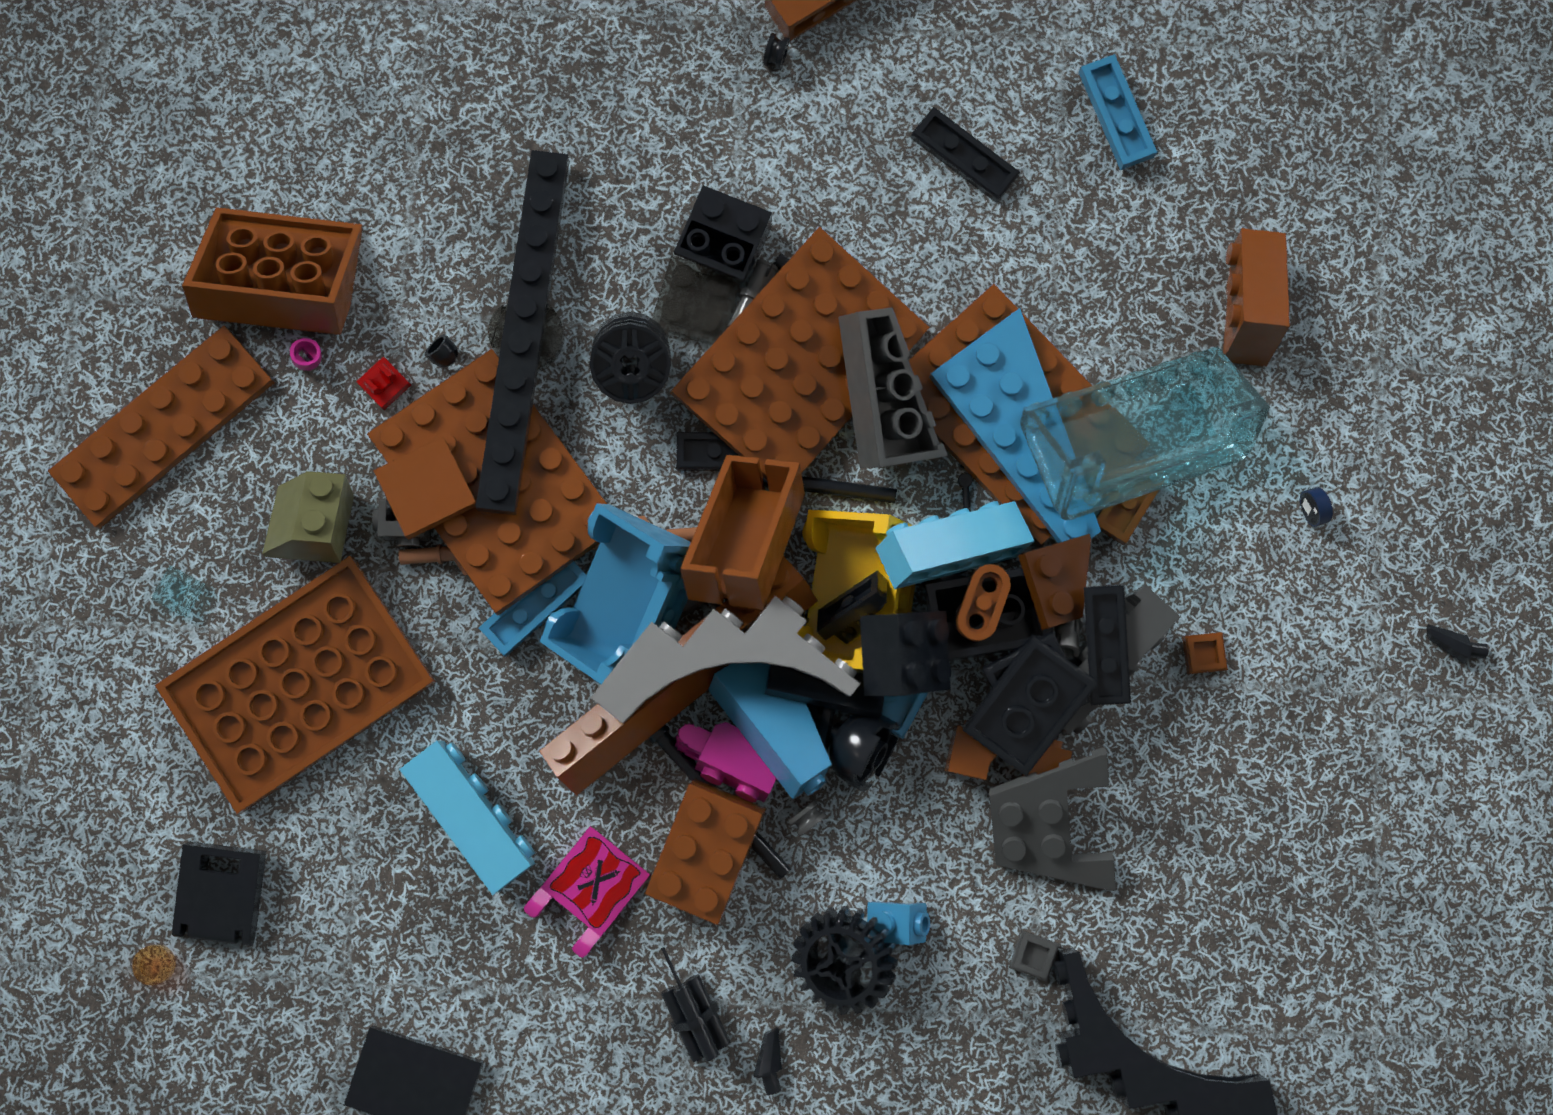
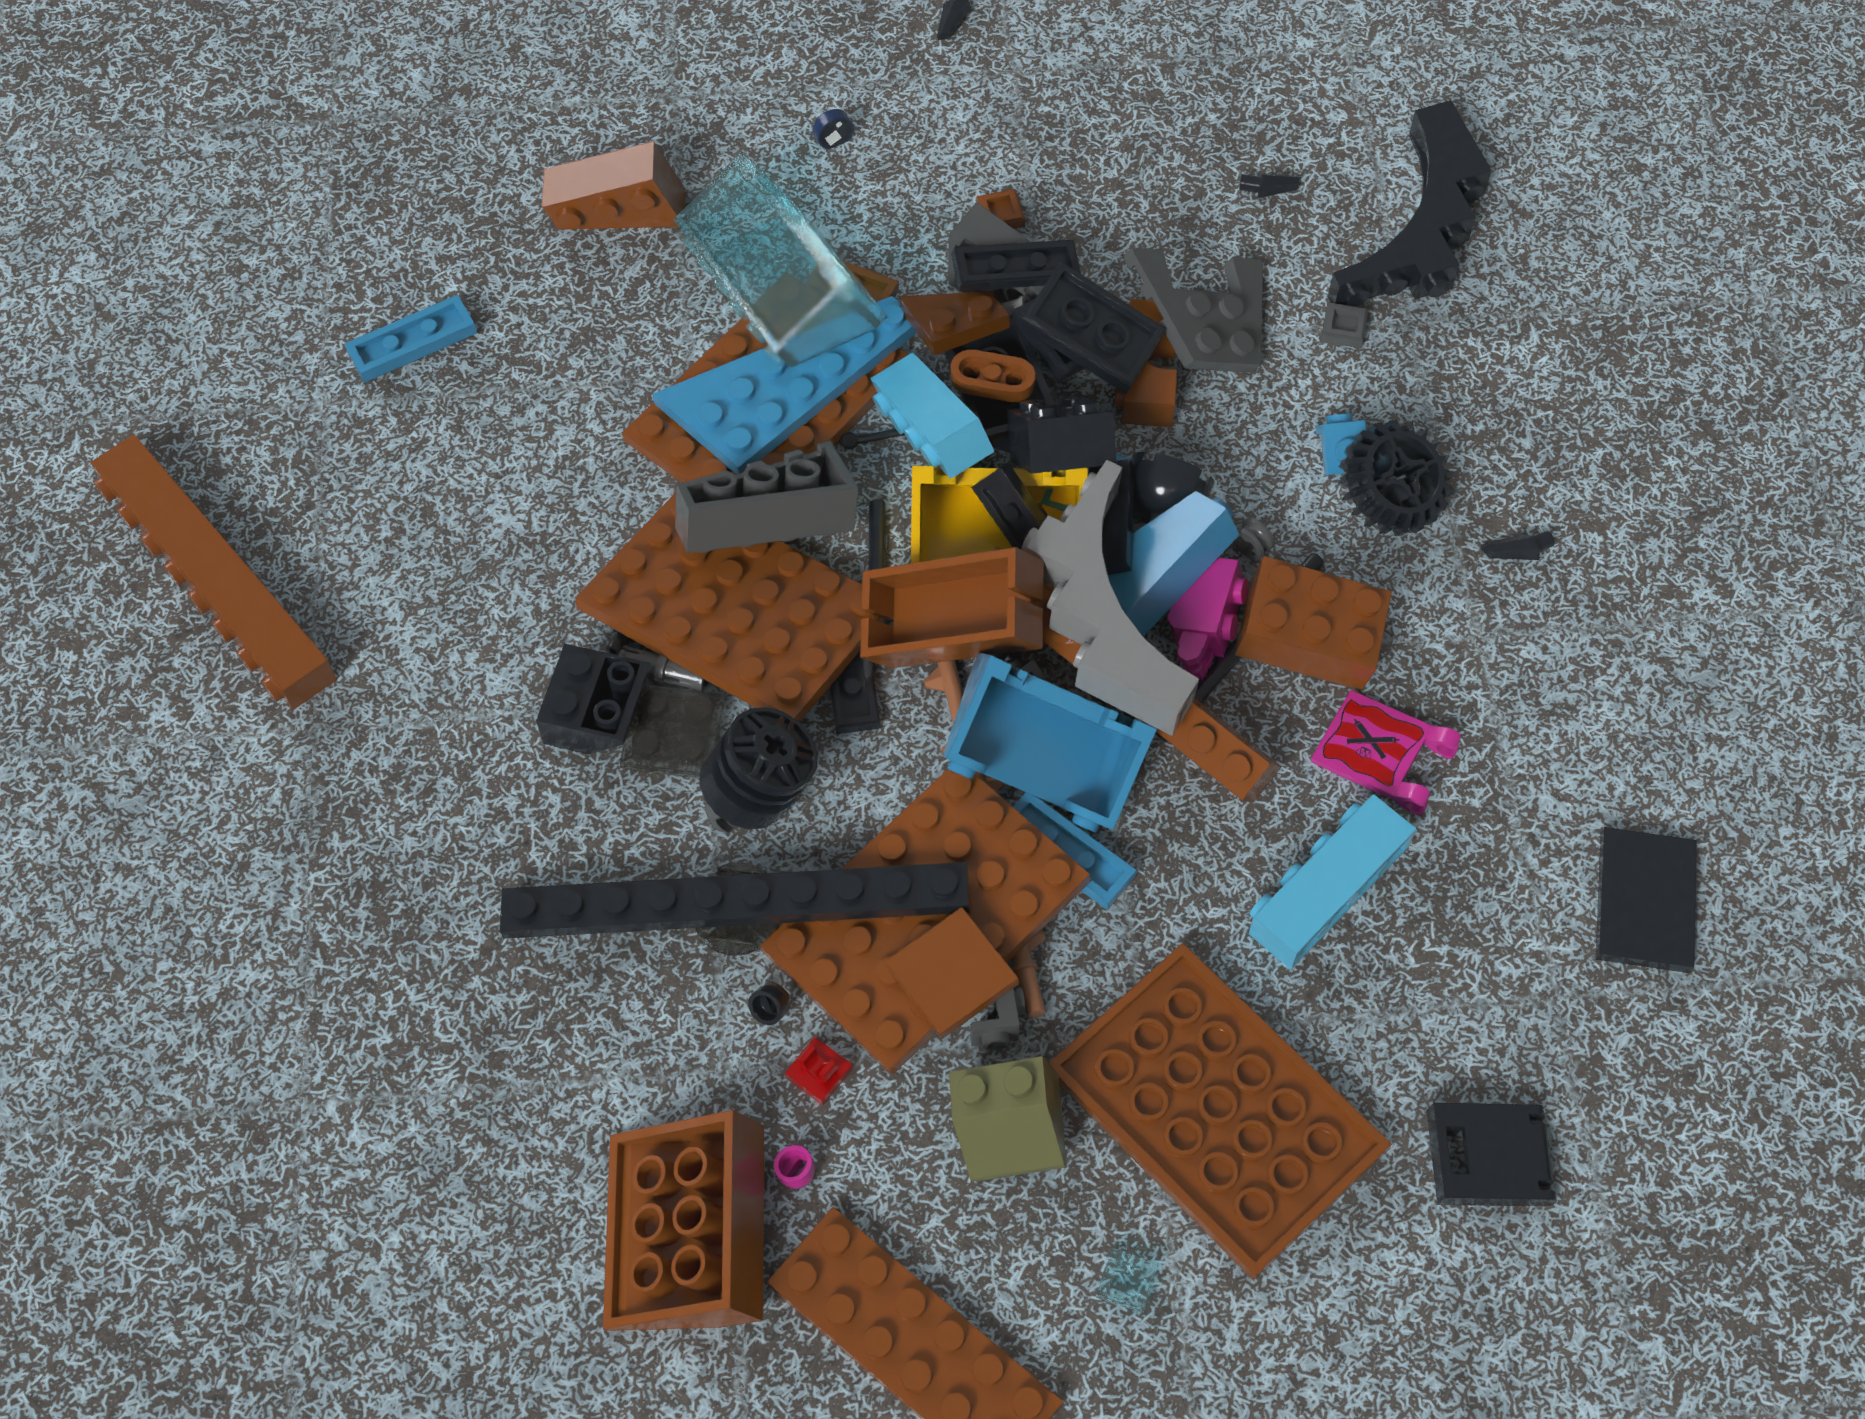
camera: 95 degrees left, 20 degrees down
(153, 964) = (1596, 1222): clear orange tile -> none
(695, 1016) = (1494, 620): black piece -> none
(776, 51) = (353, 681): black bush -> none
(965, 154) = (469, 481): black tile -> none
(1208, 919) = (1269, 184): none -> black bar

